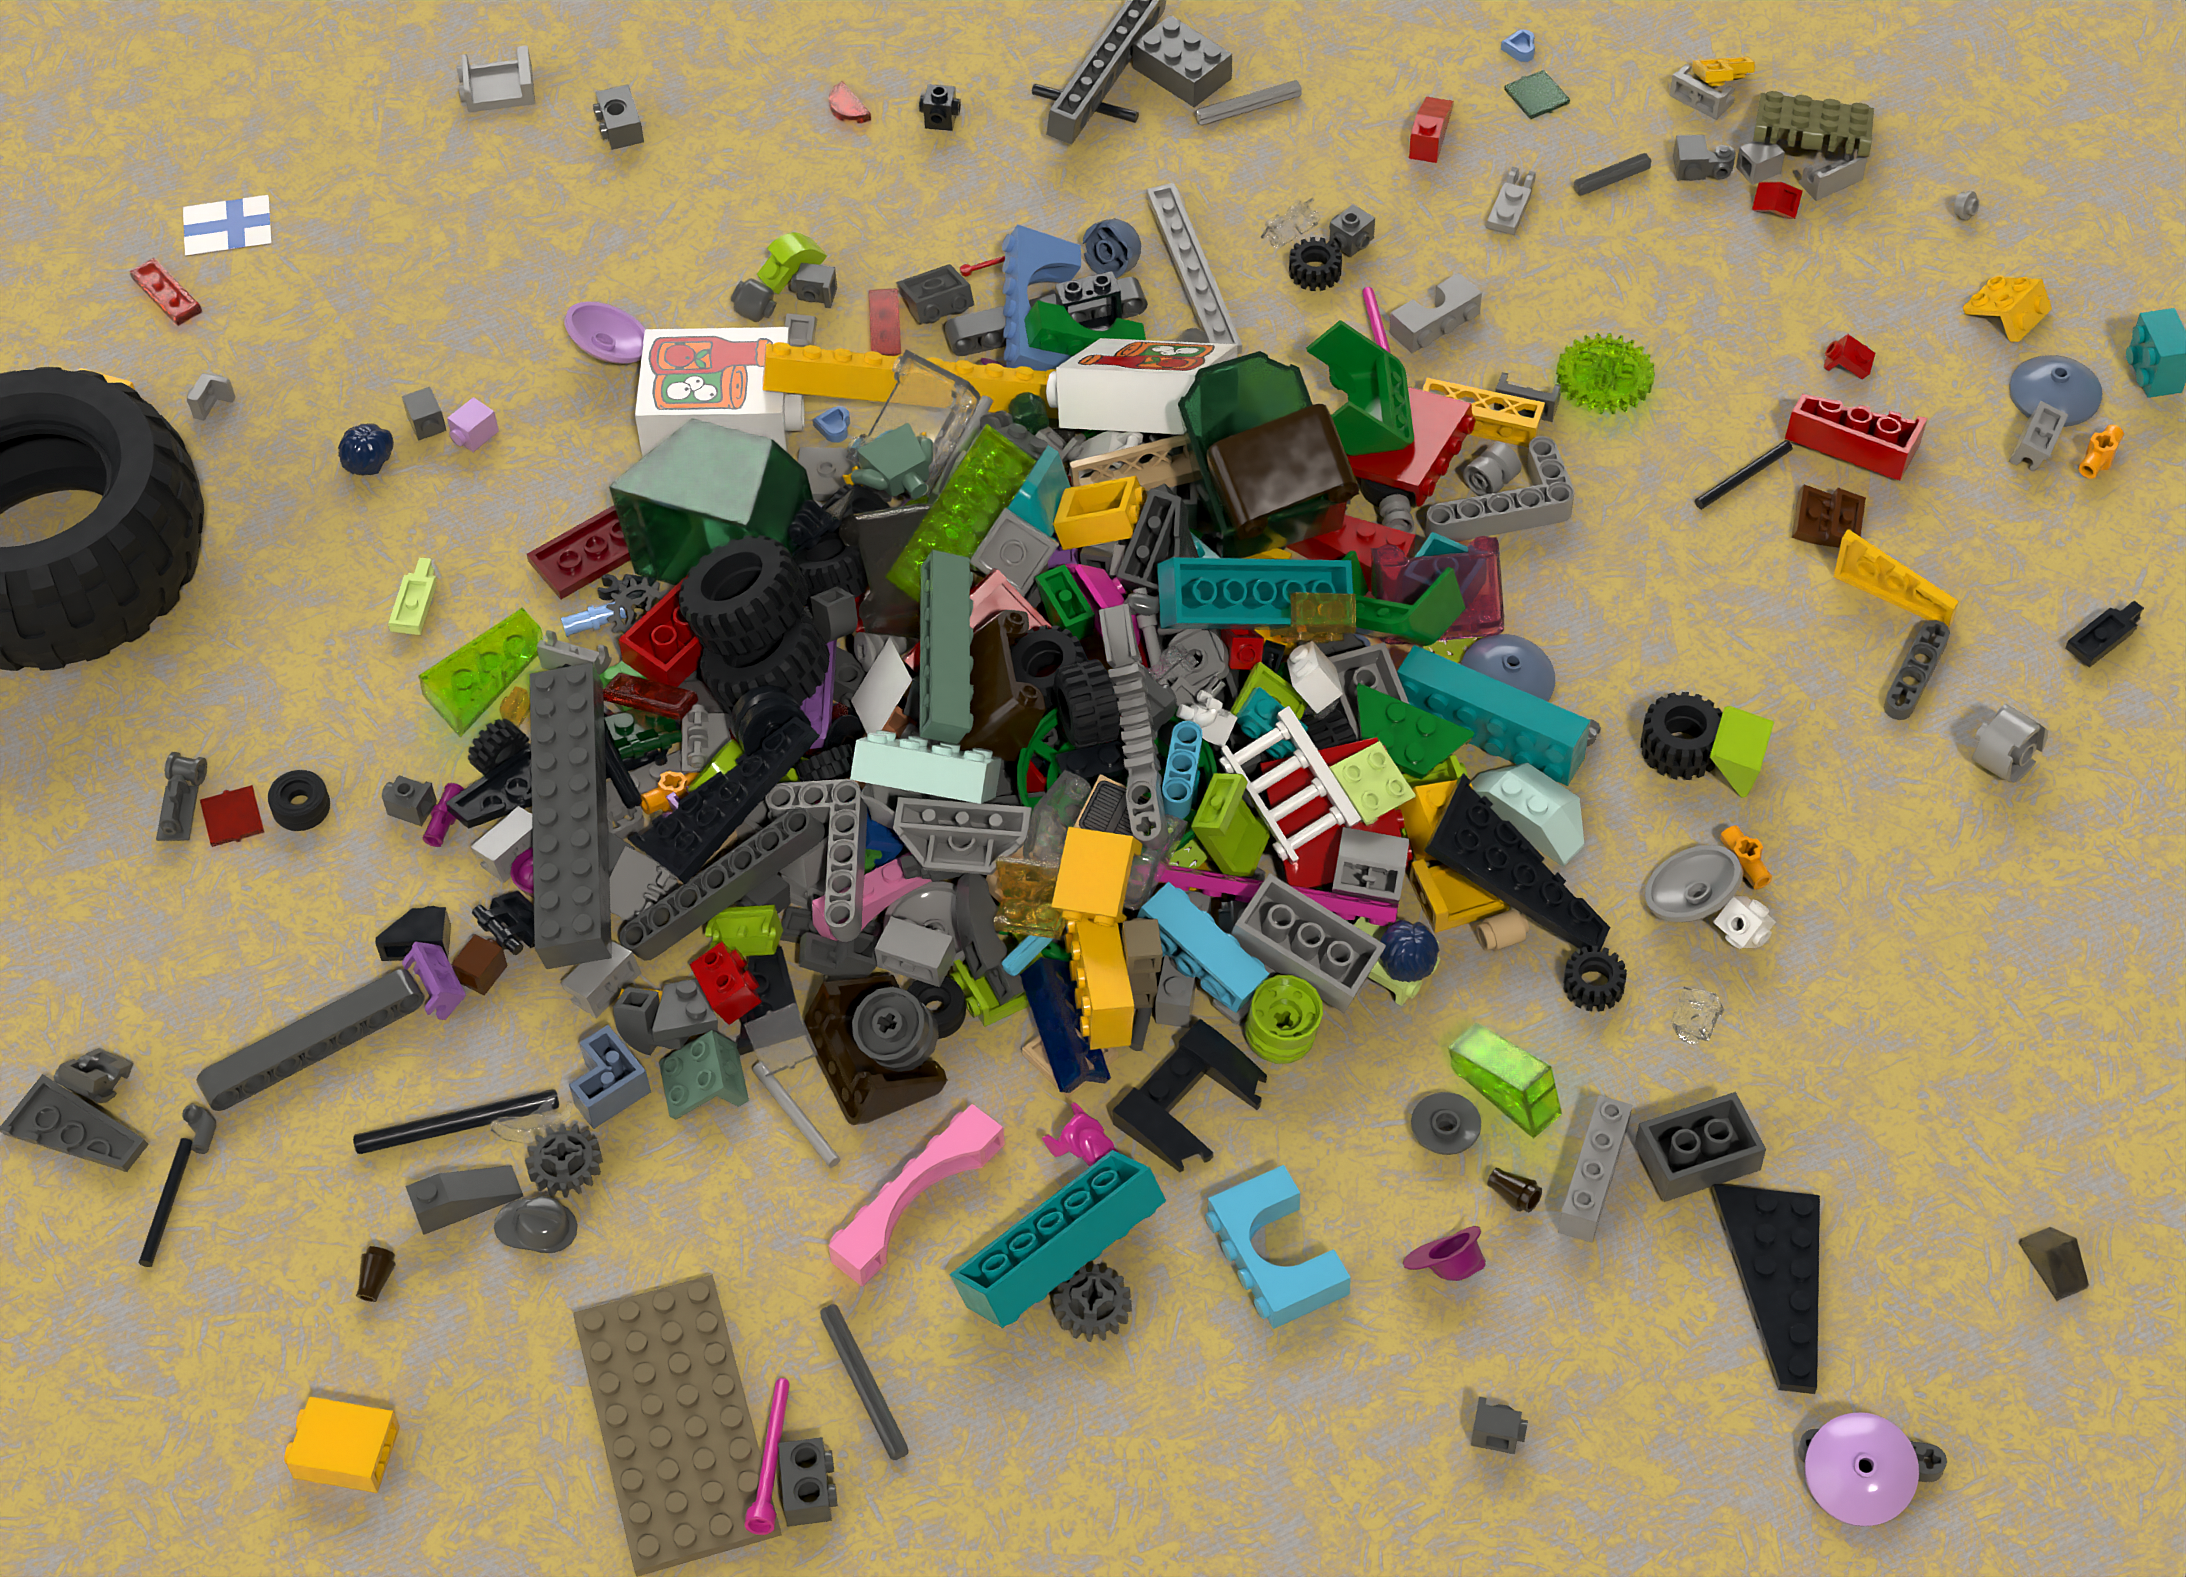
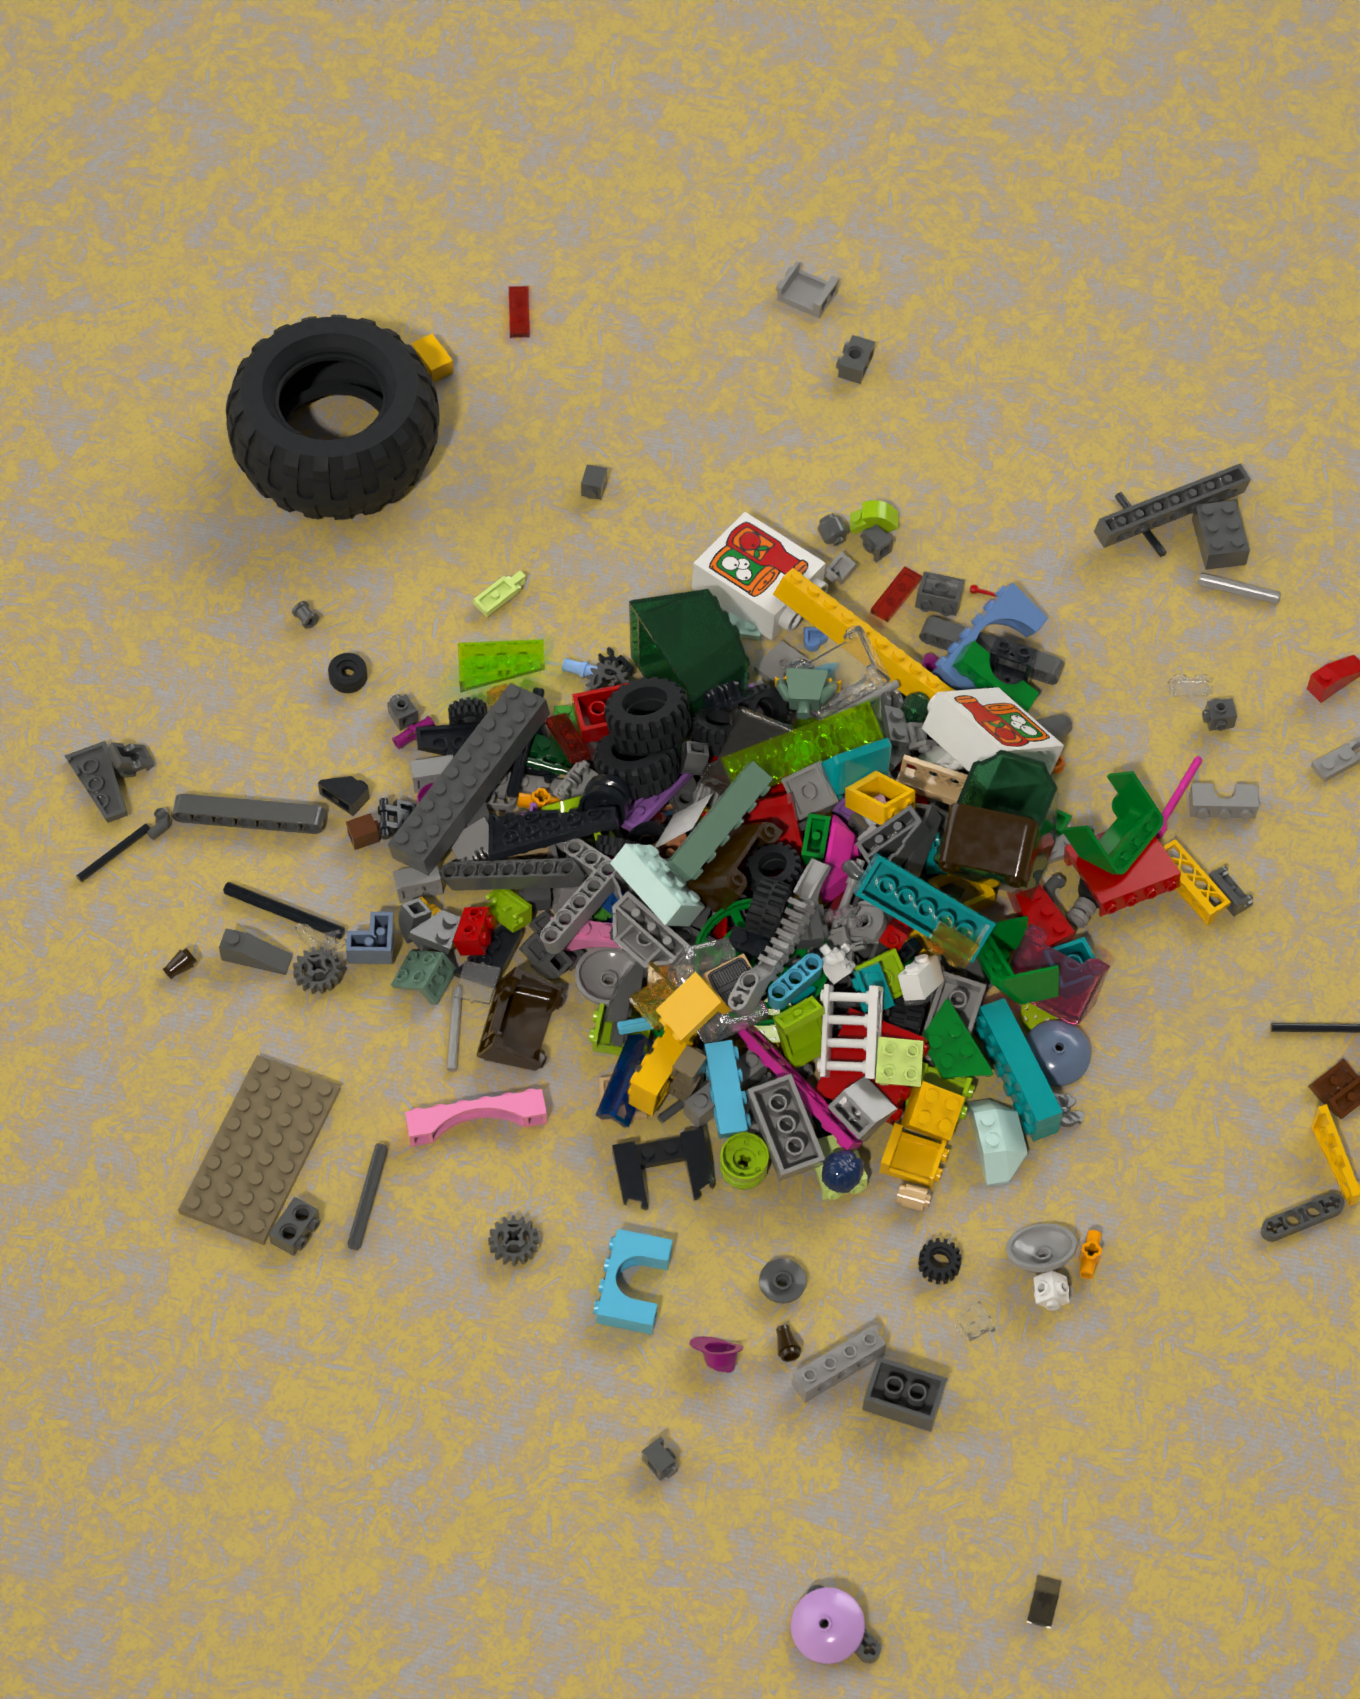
camera: 35 degrees right, 5 degrees up
(177, 810) = (283, 636): dark grey hinge -> none
(206, 392) = (487, 392): light grey bracket -> none
(226, 225) = (585, 289): white sticker -> none
(232, 816) = (309, 658): clear red piece -> none
(342, 1444) = (94, 1042): yellow brick -> none
(365, 449) = (546, 483): dark blue hair -> none
(437, 978) = (334, 823): medium lavender hinge -> none
(472, 425) = (614, 506): lavender brick -> none
(536, 1225) = (278, 995): dark grey piece -> none
(557, 653) = (553, 685): light grey hinge -> none
(581, 554) = (603, 627): dark red plate -> none
(605, 332) = (730, 495): lavender dish -> none
(760, 1516) = (256, 1227): dark pink piece -> none
(846, 105) = (995, 434): clear red tile -> none
(895, 1029) = (535, 1019): dark grey wheel -> none
(915, 951) = (581, 983): light grey brick -> none
(940, 107) = (1047, 472): black brick -> none
(949, 994) = (570, 1009): black tyre -> none
(1058, 1238) = (521, 1193): teal brick -> none
(1081, 1137) = (584, 1150): dark pink hair -> none
(1112, 247) = (1067, 632): sand blue cylinder -> none
(1192, 265) = (1104, 678): light grey plate -> none
(1315, 252) = (1184, 711): black tyre -> none
(1492, 470) = (1163, 922): light grey wheel -> none
(1507, 1077) = (837, 1280): clear neon green wedge -> none
(1509, 867) = (939, 1159): black wing -> none
(1513, 510) = (1155, 950): light grey beam -> none
(1605, 373) = (1311, 913): clear neon green gear -> none
(1683, 715) = (1121, 1142): black tyre -> none
(1741, 747) = (1142, 1188): lime slope -> none
(1778, 1263) = (893, 1486): black wing -> none
(2009, 744) = (1306, 1298): light grey brick -> none

